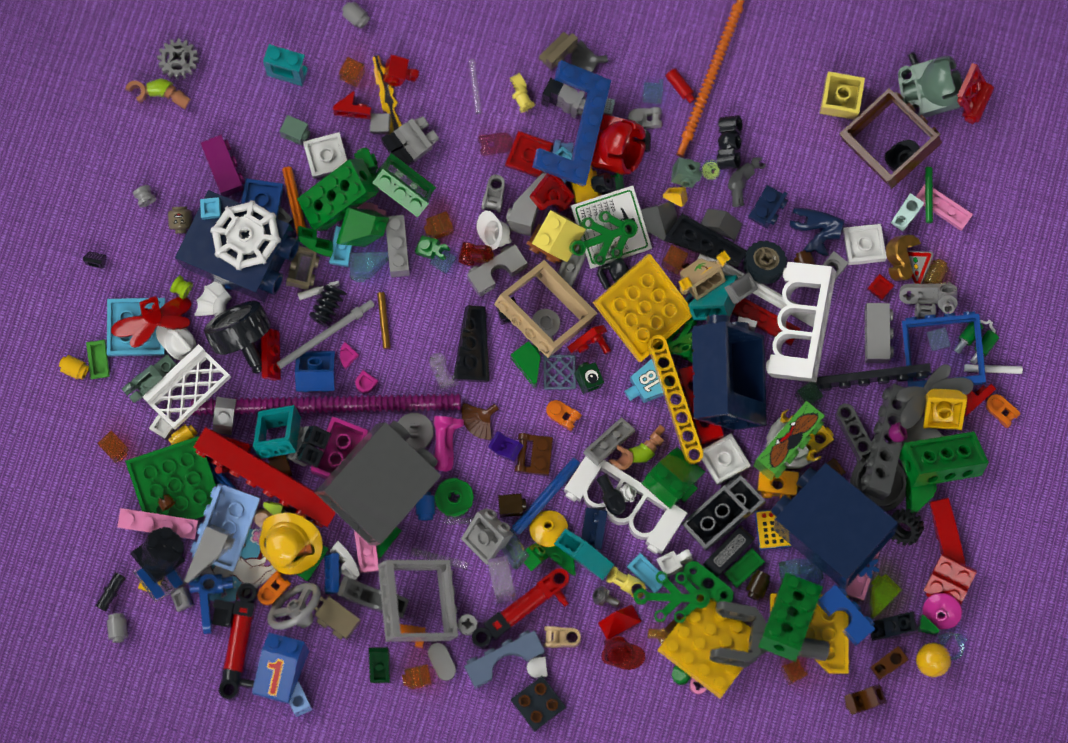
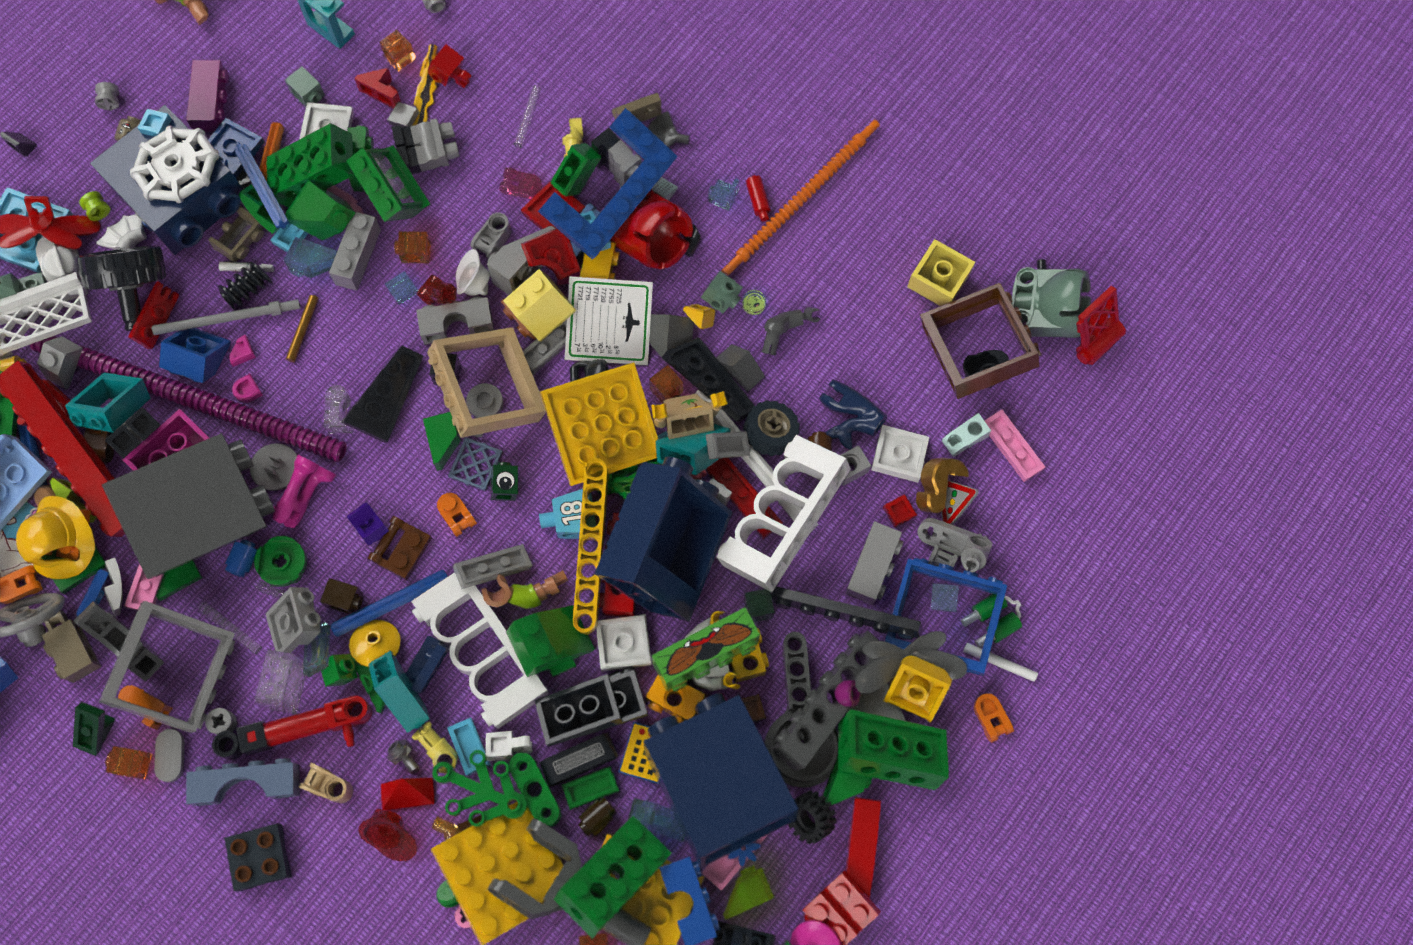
camera: 20 degrees right, 5 degrees down
(307, 224) = (261, 186): none -> blue axle
(430, 247) = (391, 267): green plate -> none
(478, 420) = (355, 482): reddish brown hand -> none
(536, 118) = (575, 169): none -> green brick
(537, 667) = (280, 810): white tile -> none
(592, 336) = (525, 434): red plate -> none
(606, 184) = (620, 268): black leg -> none
(607, 237) = (596, 327): green plant -> none
(612, 497) = (460, 634): black arm -> none
(628, 492) = (484, 637): white plate -> none
(640, 116) = (699, 214): light grey plate -> none
(729, 142) = (787, 278): black piece -> none
(767, 206) = (802, 368): dark blue bracket -> none
(929, 194) = (1000, 424): green piece -> none
(936, 272) = (974, 517): clear yellow brick -> none
(974, 400) = (959, 691): red slope -> none

